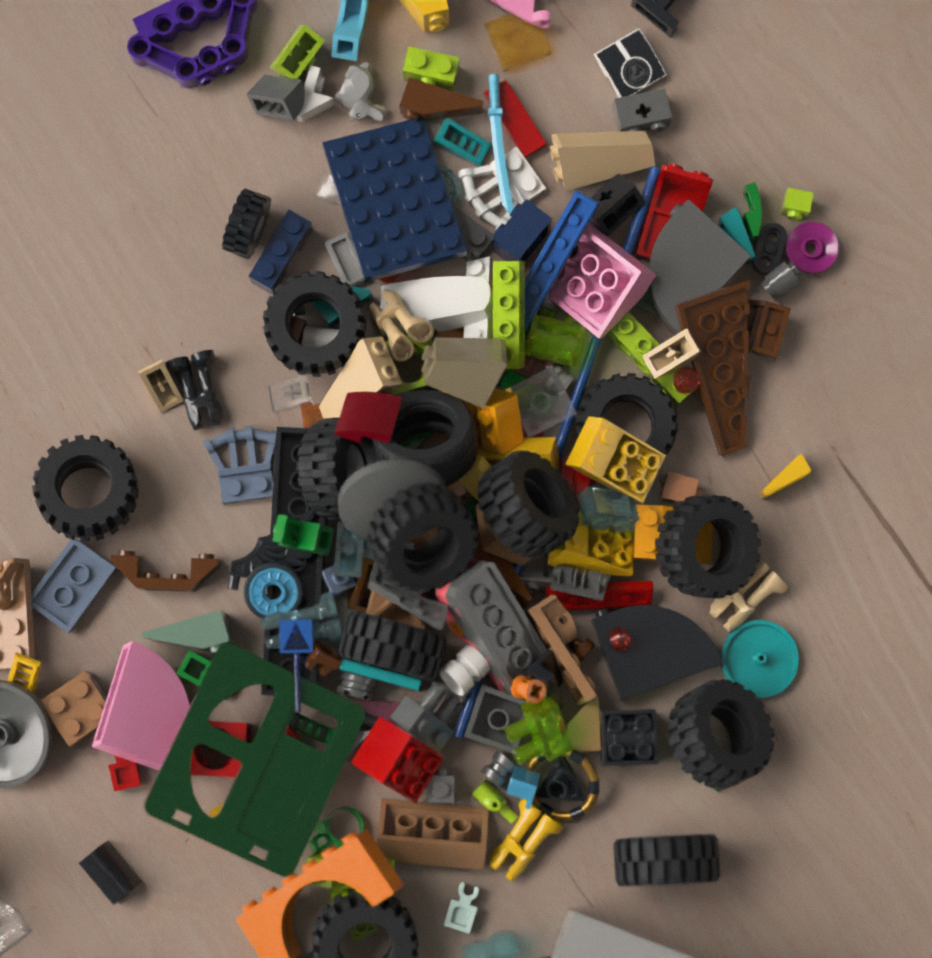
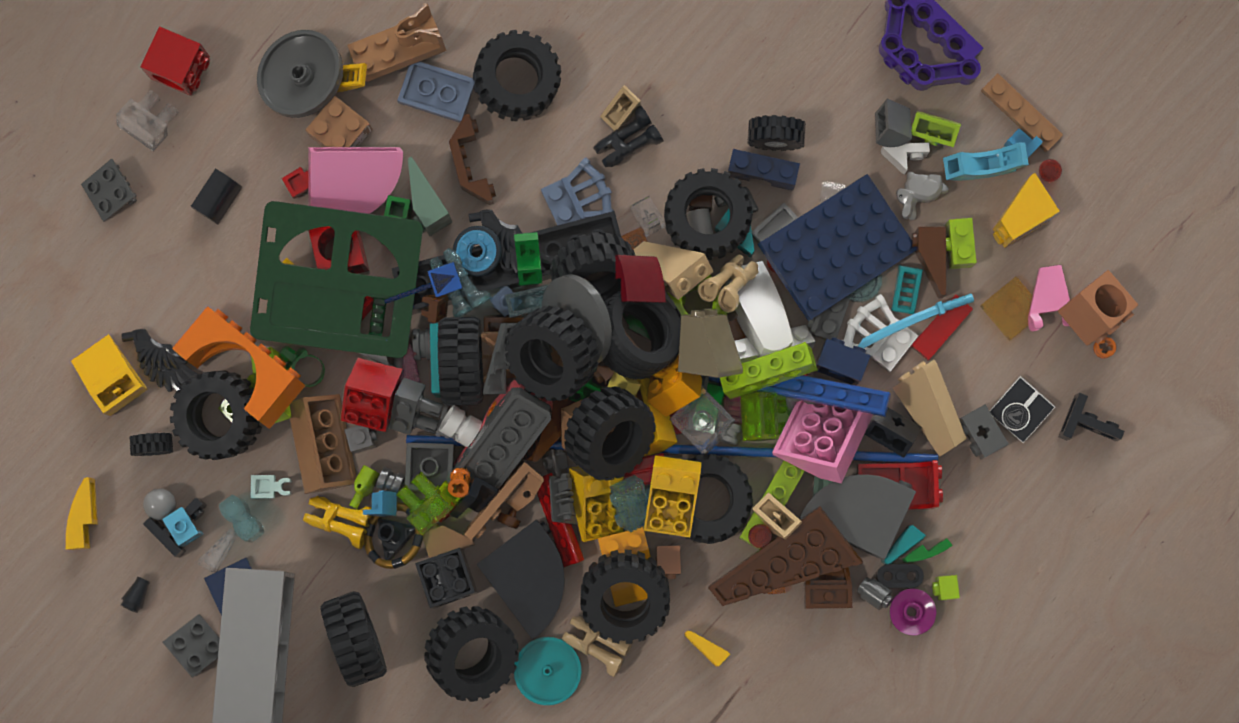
camera: 75 degrees right, 0 degrees up
(620, 639) = (525, 546): clear red plate -> none

